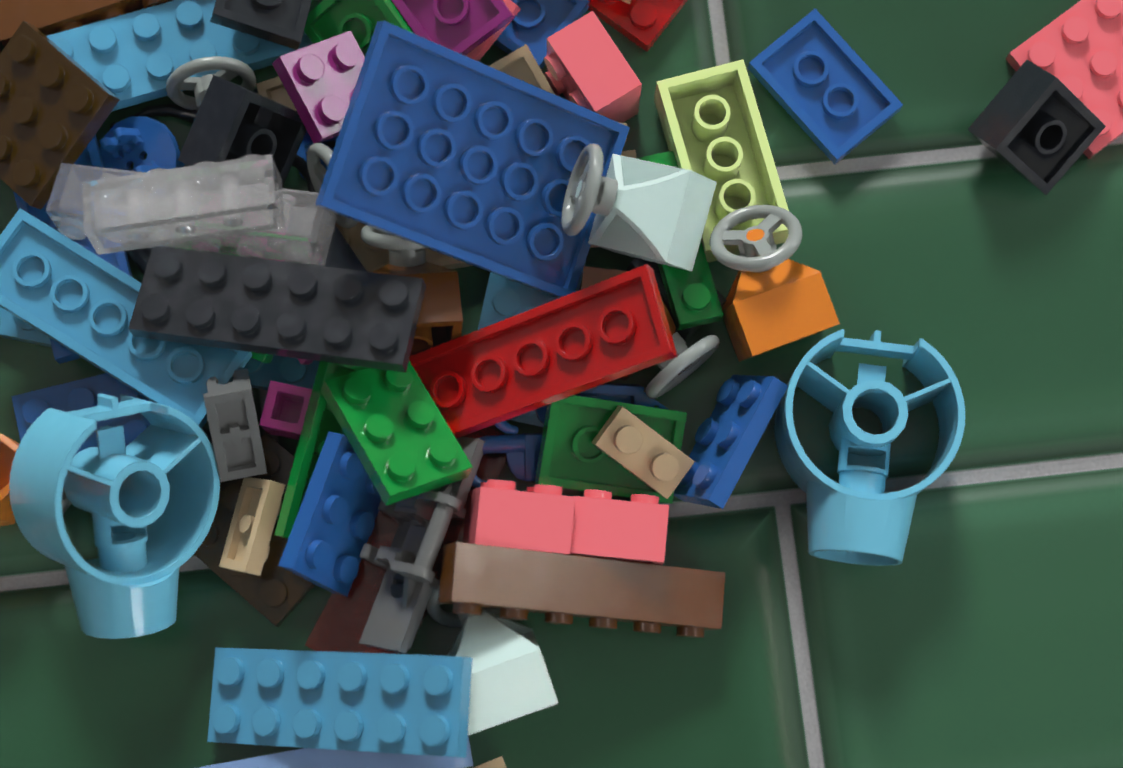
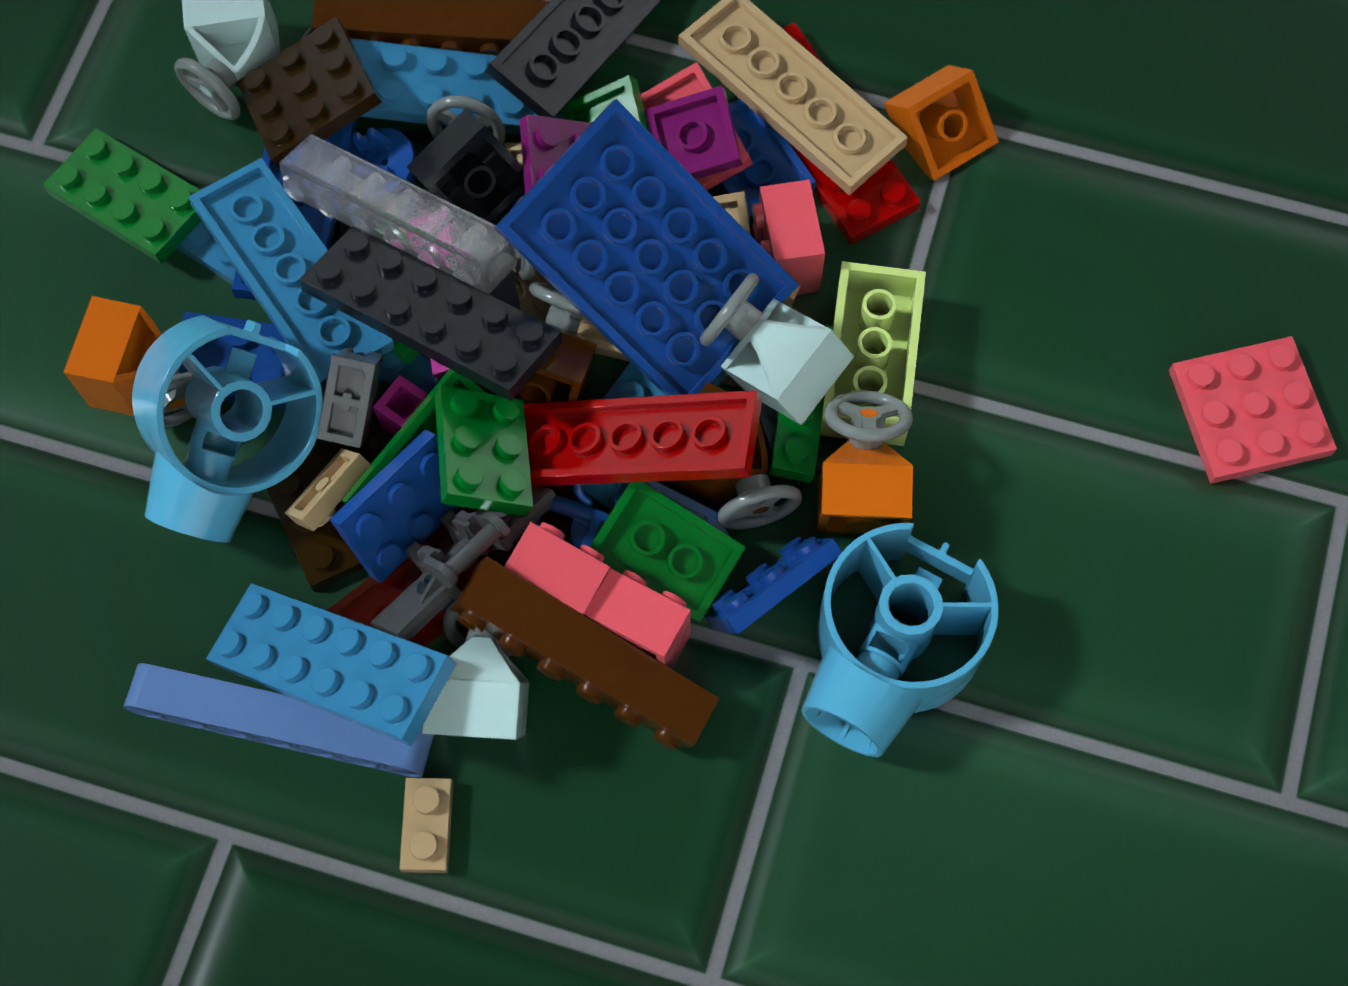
camera: 25 degrees right, 10 degrees down
(183, 204) = (390, 194): clear brick -> none
(642, 452) = (691, 562): tan plate -> none
(824, 86) = (993, 329): blue plate -> none
(1037, 126) = (1170, 432): black slope -> none

